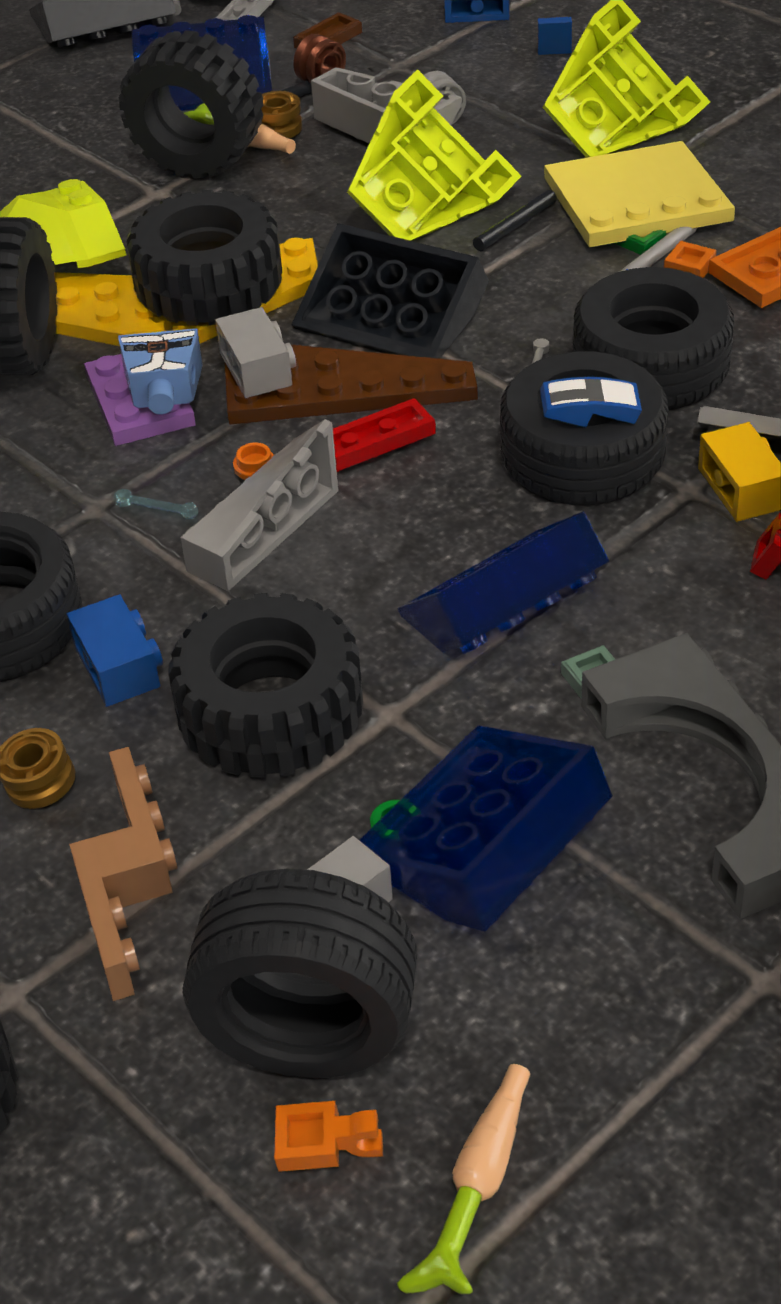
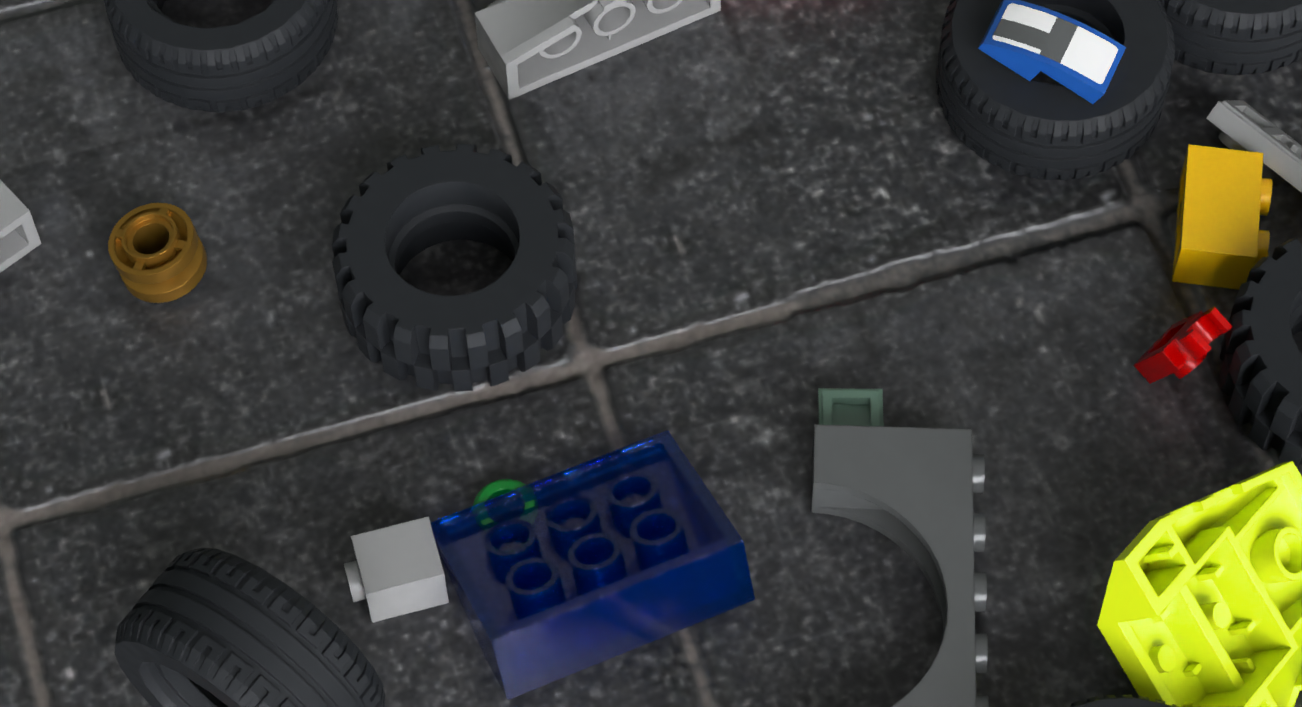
camera: 25 degrees right, 15 degrees up
(115, 649) = (326, 131): blue brick -> none
(124, 870) = (178, 431): medium nougat bracket -> none
(507, 584) = (821, 250): clear blue slope -> none

